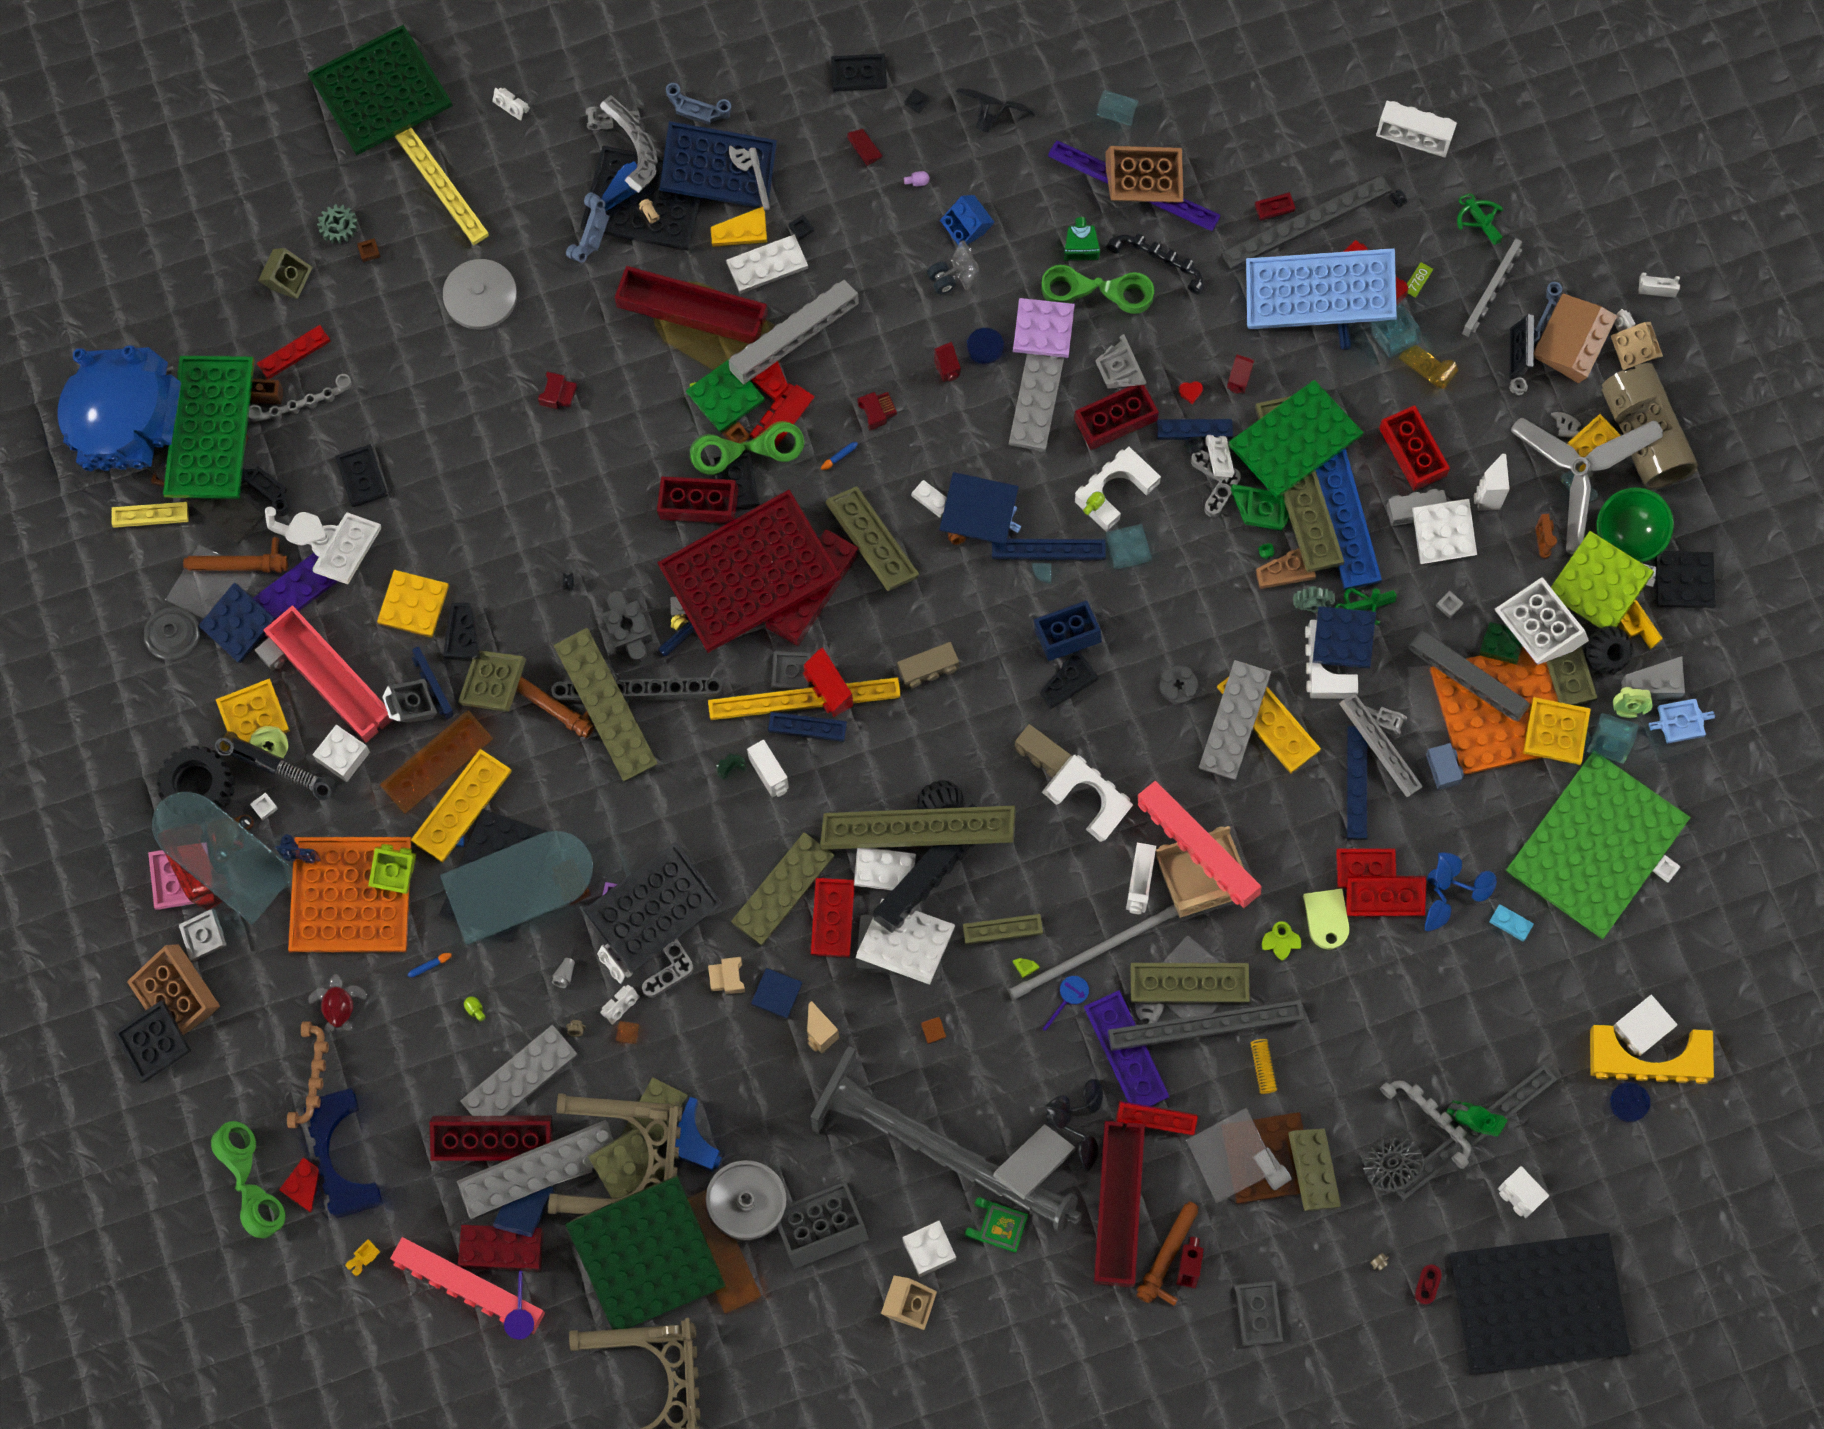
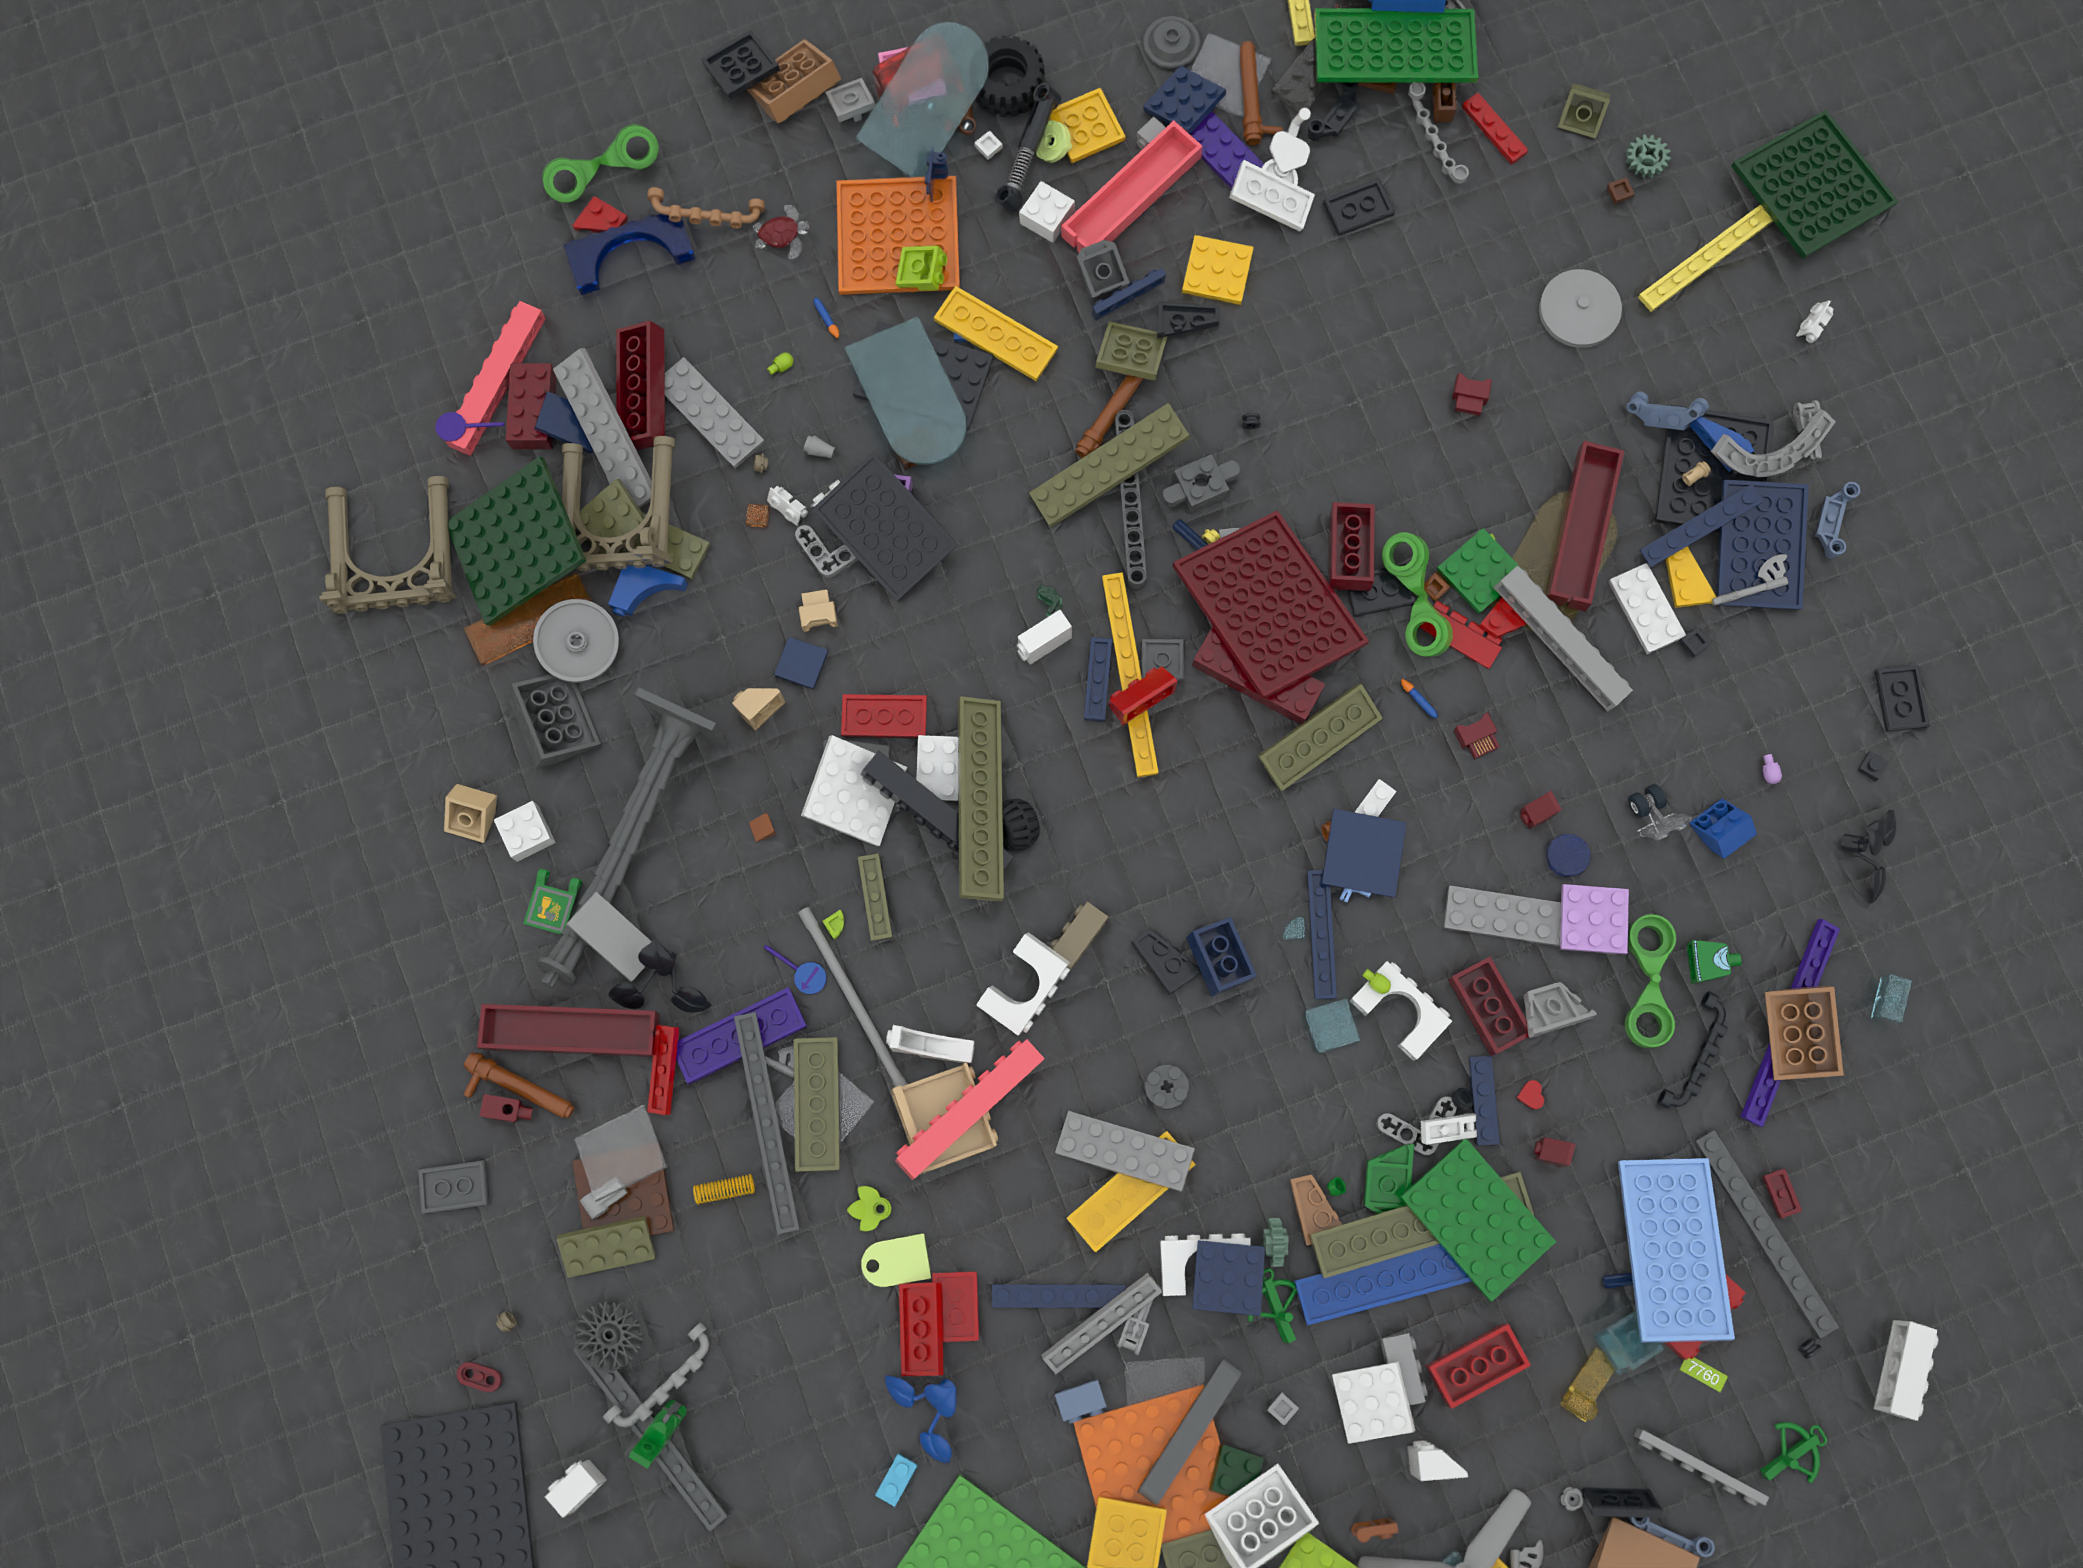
camera: 90 degrees right, 5 degrees up
(363, 1255) = (527, 279): yellow plate -> none
(436, 762) = (1043, 305): clear orange arch -> none
(699, 211) = (1701, 525): none -> dark blue plate
(782, 889) = (915, 663): olive plate -> none
(864, 146) = (1807, 708): dark red slope -> none
(928, 665) = (1174, 805): dark tan brick -> none

